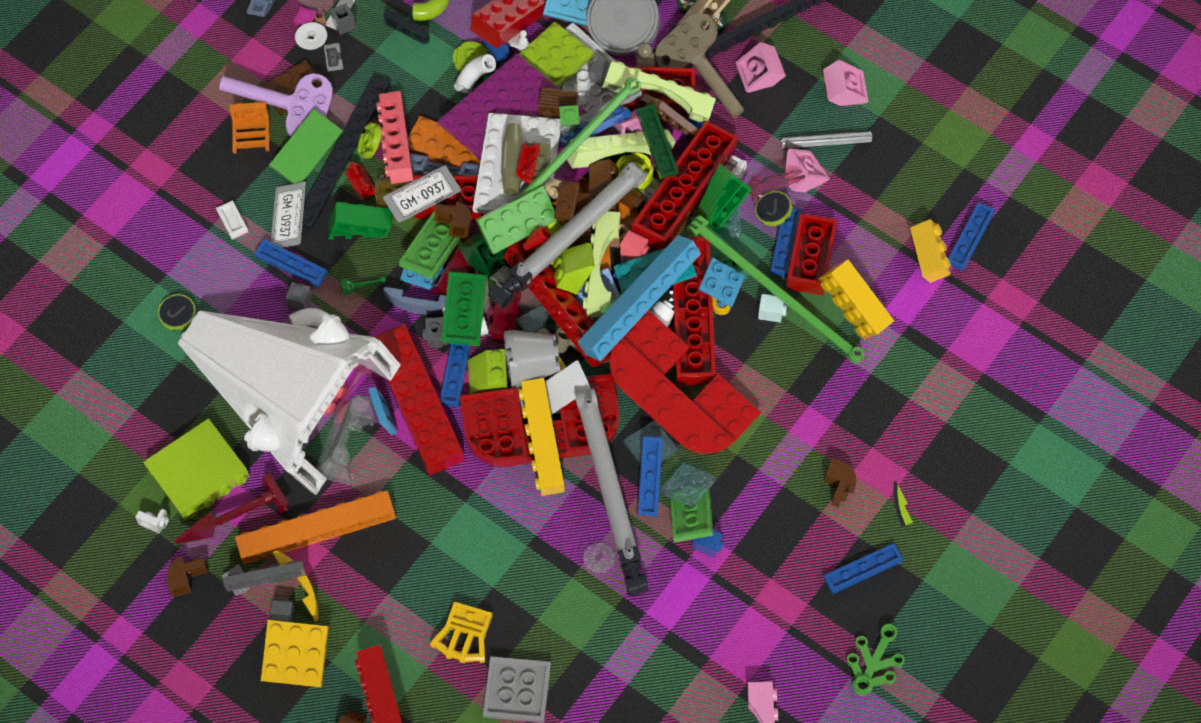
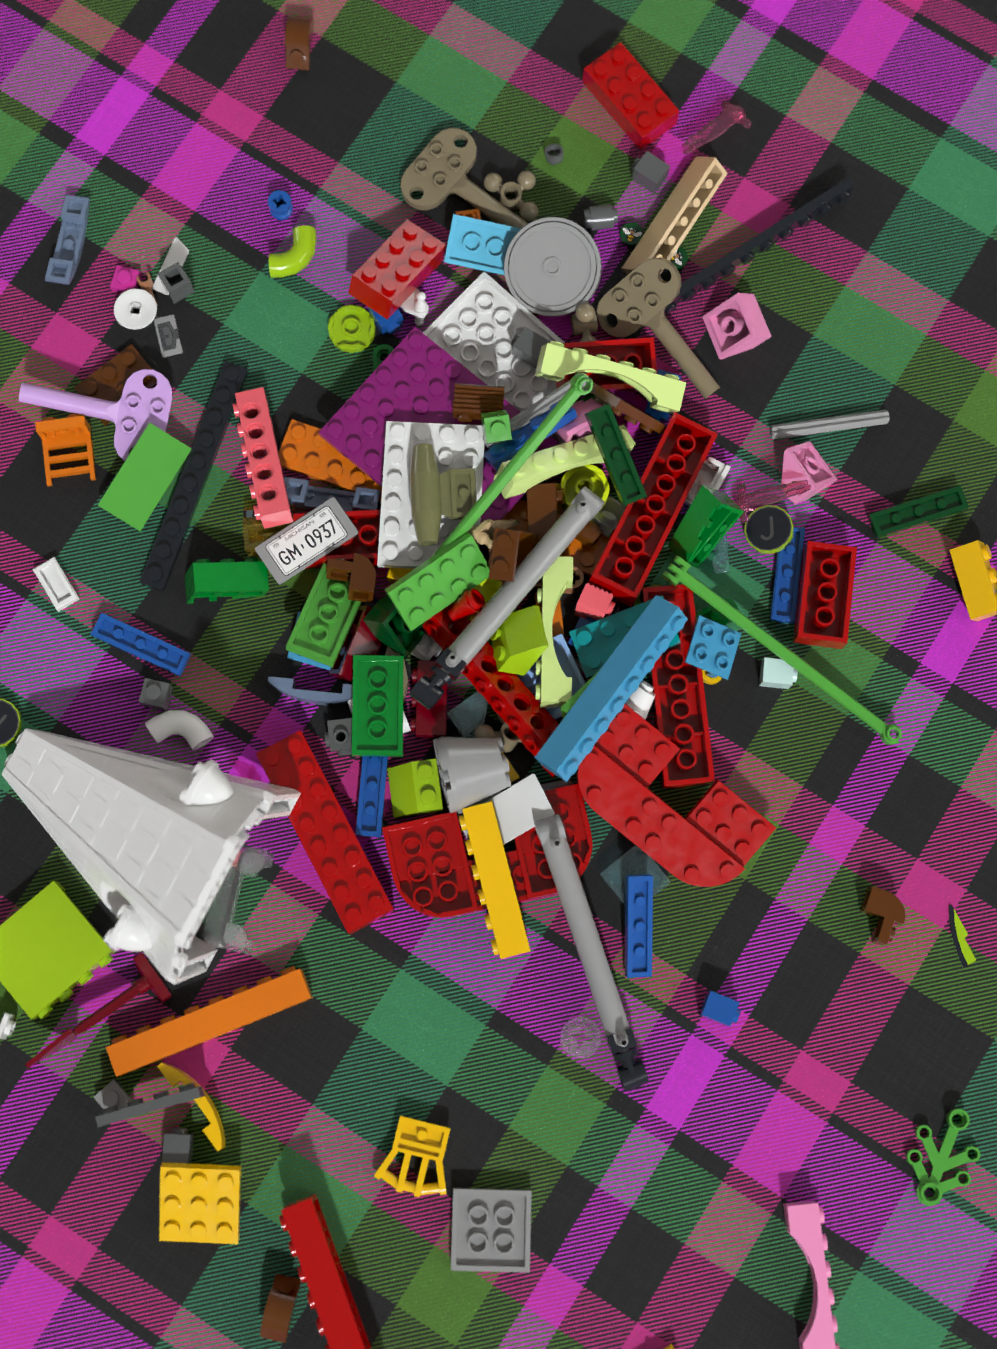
camera: 10 degrees left, 15 degrees up
(180, 572) = (37, 1102): reddish brown brick -> none
(288, 215) = (130, 574): sticker -> none
(348, 285) = (220, 672): green hinge -> none
(360, 181) = (221, 519): red hinge -> none
(369, 141) = (229, 462): lime tile -> none
(383, 411) = (283, 855): dark azure tile -> none
(407, 27) = (263, 288): black plate -> none
(472, 71) = (357, 351): white cylinder -> none
(527, 162) = (446, 506): red hinge -> none
(557, 54) = (466, 322): lime plate -> none
(687, 484) = (688, 932): clear light blue plate -> none
(693, 521) = (696, 976): bright green tile -> none
(845, 84) = (849, 343): bright pink slope -> none
(856, 300) = (890, 664): yellow brick -> none
(863, 568) = (918, 1030): blue tile -> none
(889, 202) = (918, 512): none -> dark green plate

